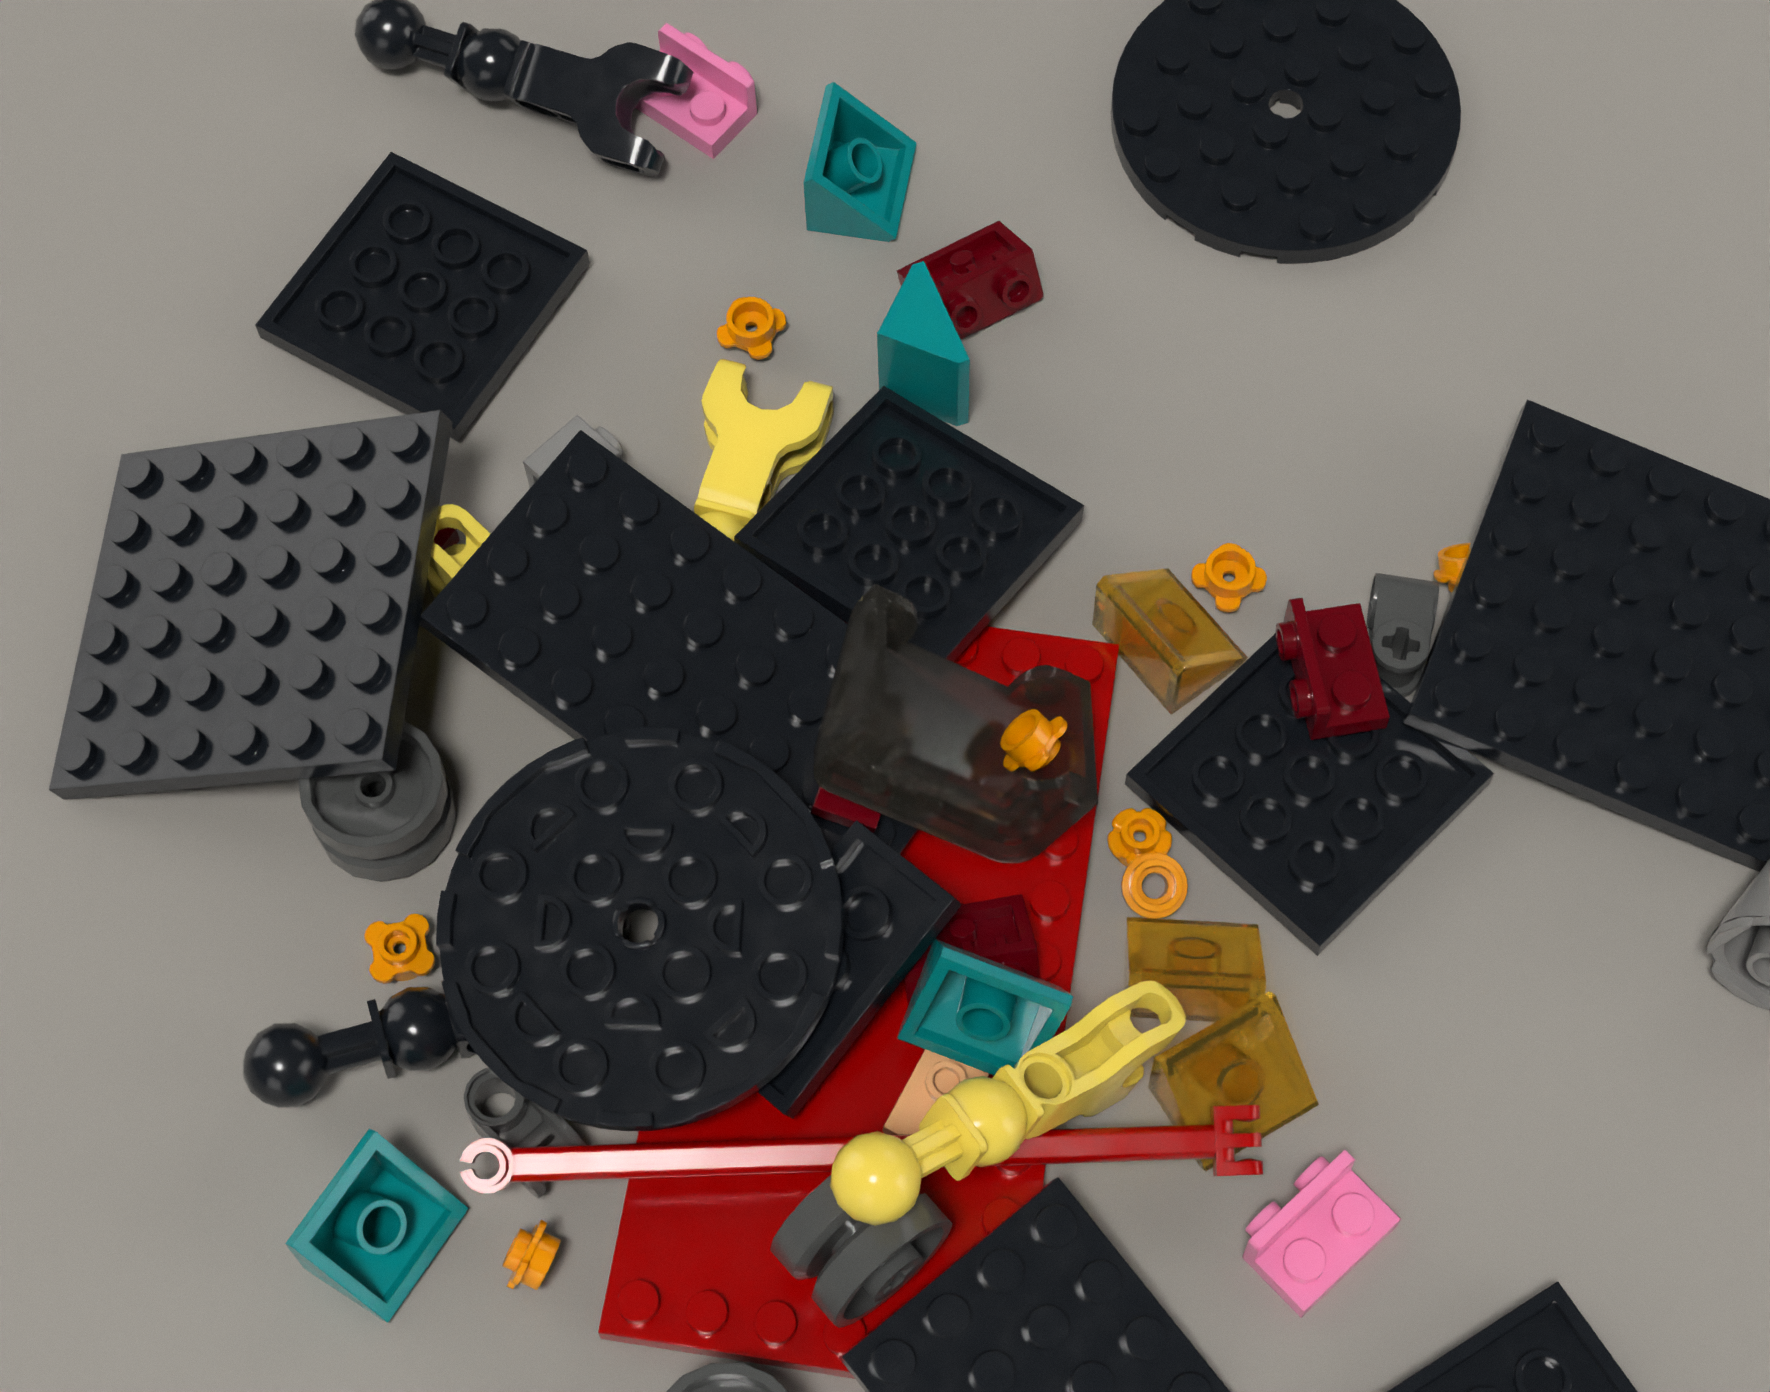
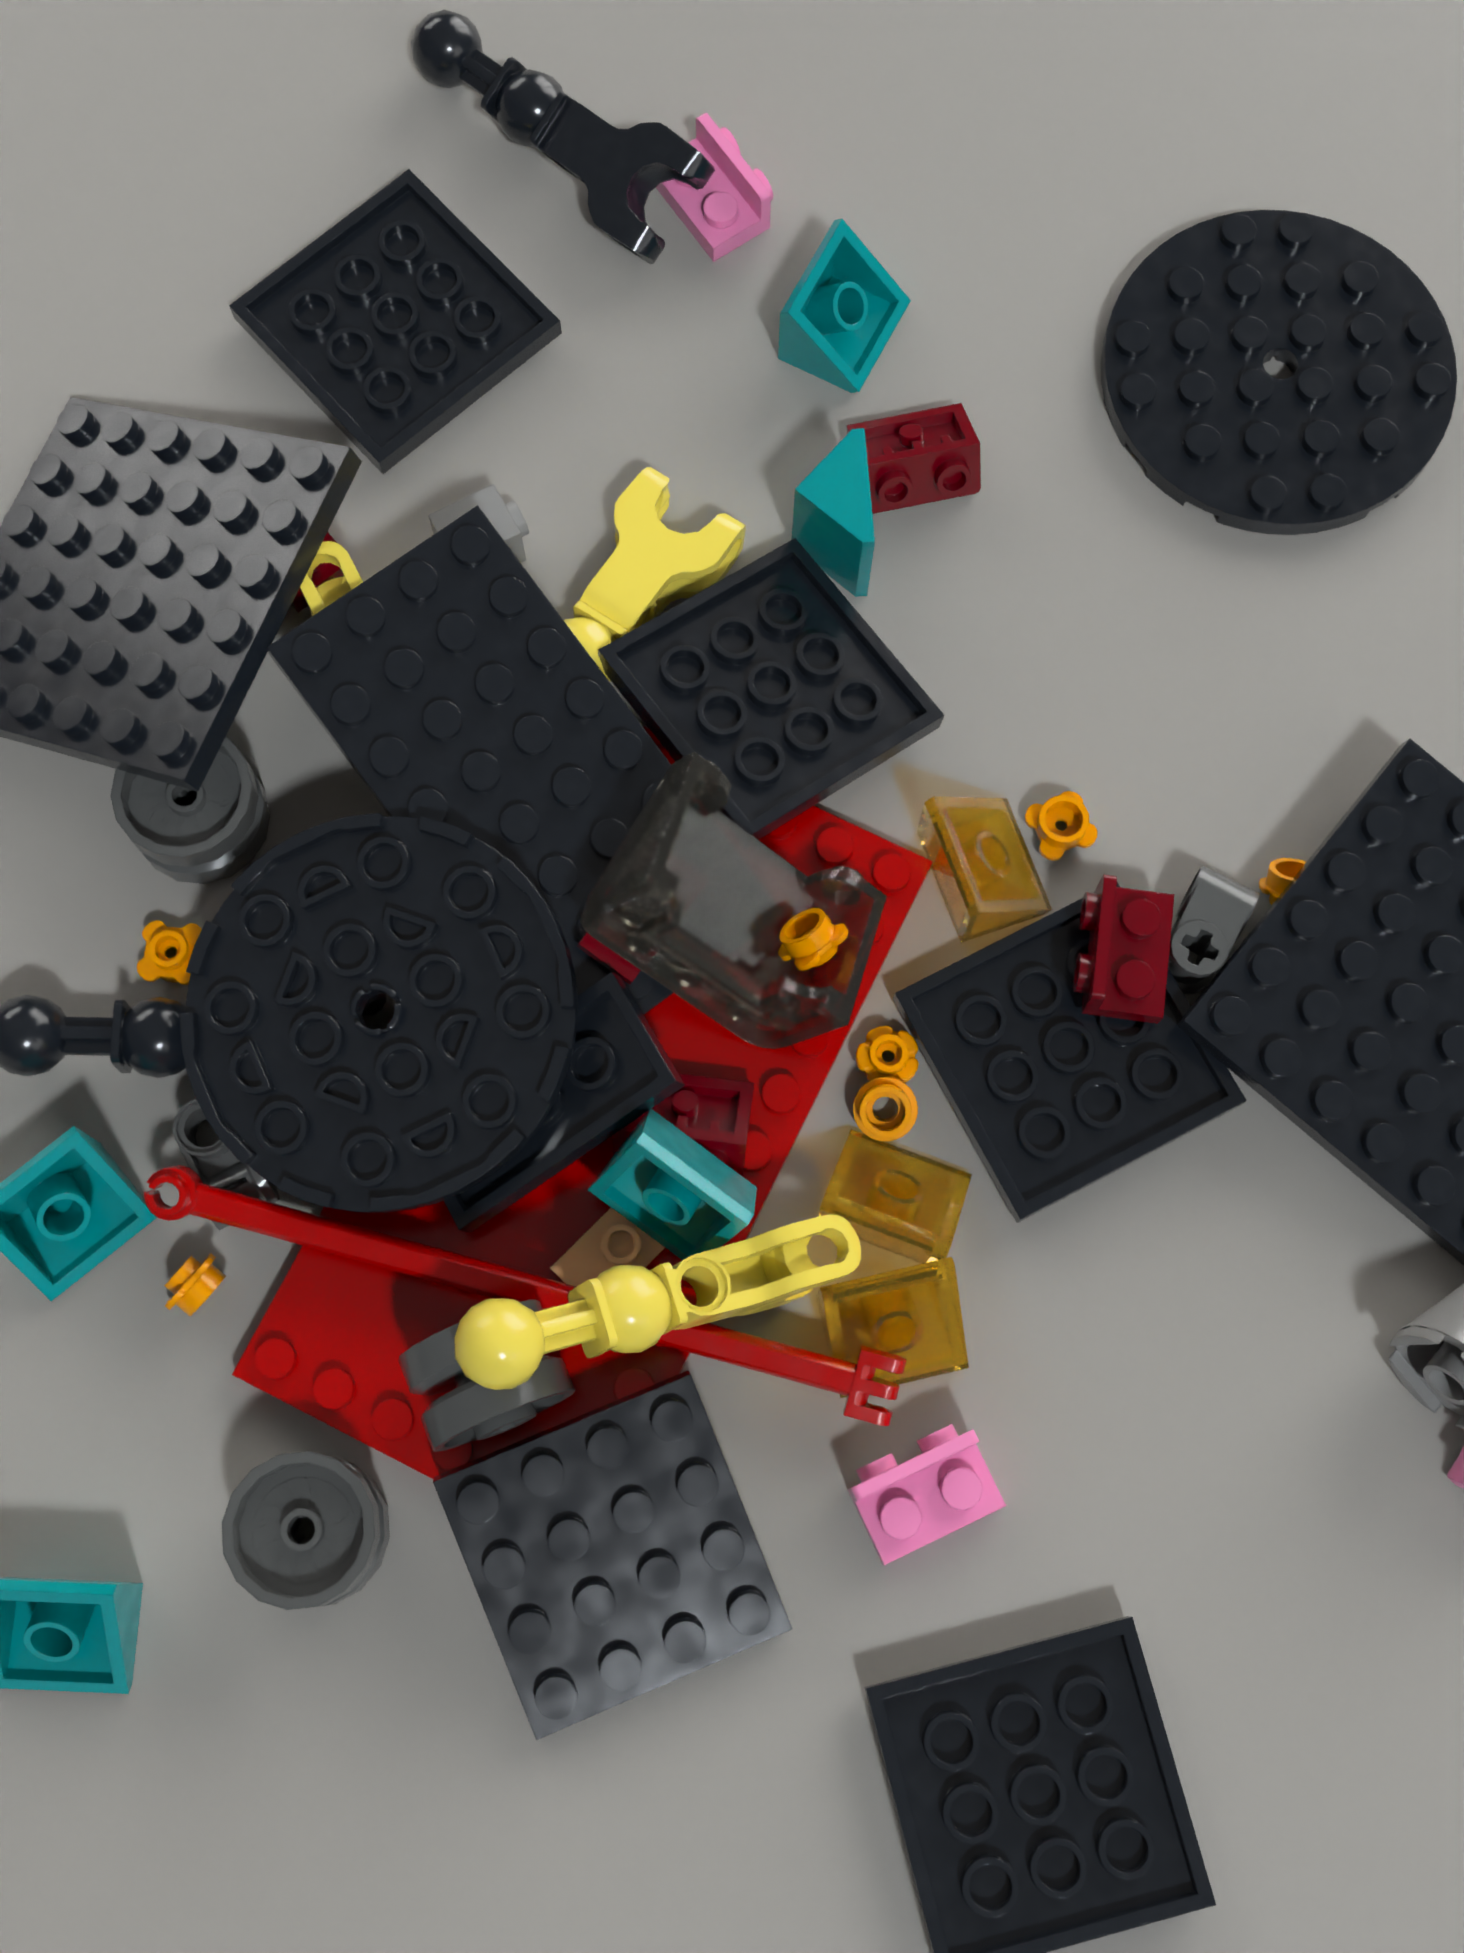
camera: 15 degrees right, 10 degrees up
(746, 313) = (687, 426): light orange plate -> none

